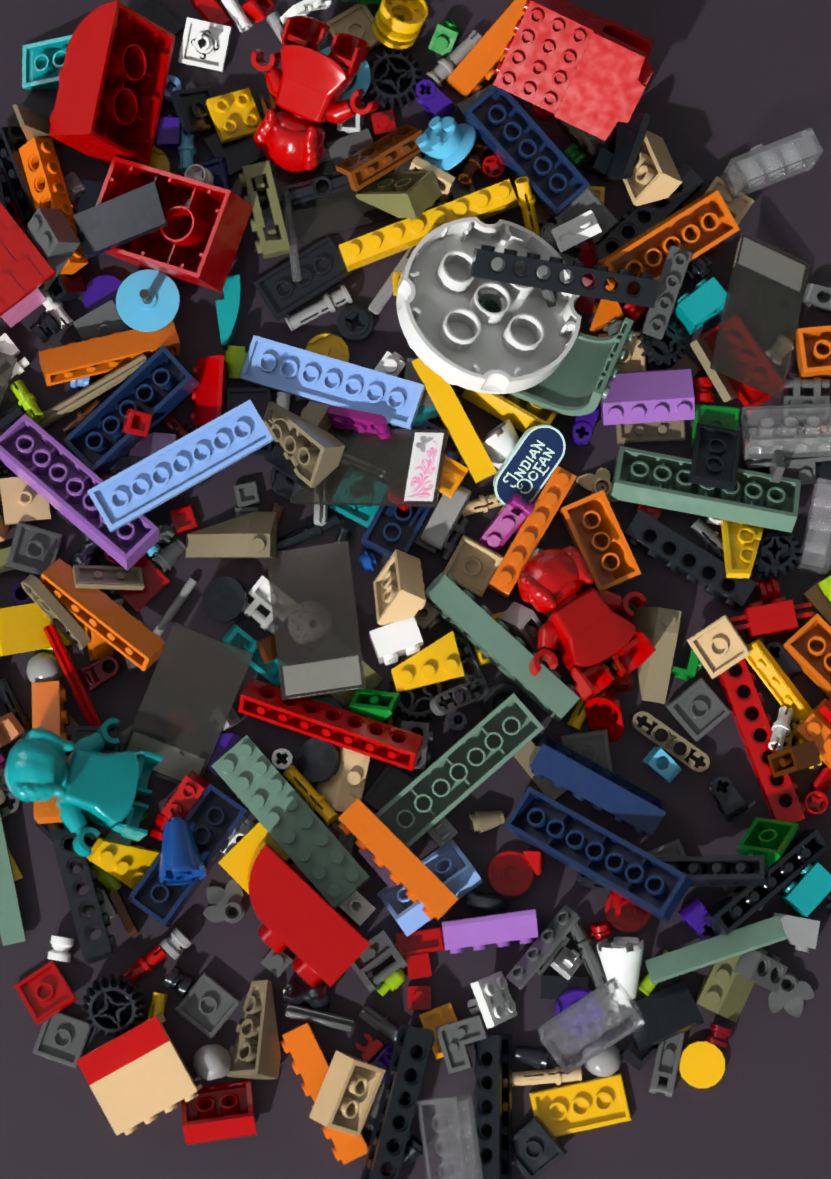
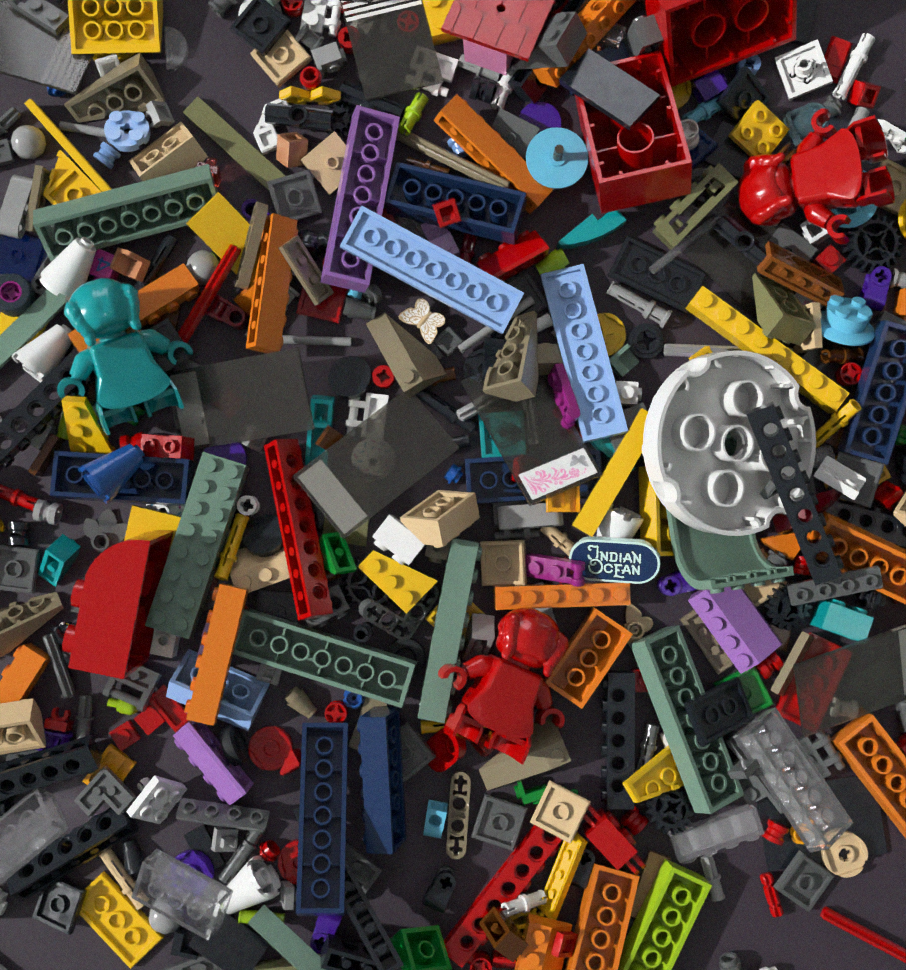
camera: 70 degrees right, 5 degrees up
(25, 321) = (478, 70): none -> light grey axle
(33, 858) = (44, 352): none -> white cone
(92, 163) = (643, 36): none -> dark grey brick
(183, 519) = (396, 302): red tile -> none
(215, 503) = (423, 319): none -> animal
(225, 960) = (58, 559): none -> teal slope
(245, 573) = (383, 380): none -> red wheel
(248, 72) = (802, 122): none -> clear light blue piece
(252, 39) = (833, 106): none -> dark grey plate
(259, 454) = (474, 339): none -> light grey bar
(361, 353) = (623, 361): none -> sand green panel
(516, 791) = (336, 716): none -> red wheel
(517, 771) = (349, 702): none -> blue plate
(617, 200) = (887, 495): none -> red tile
(651, 934) = (287, 895): none -> light grey tile

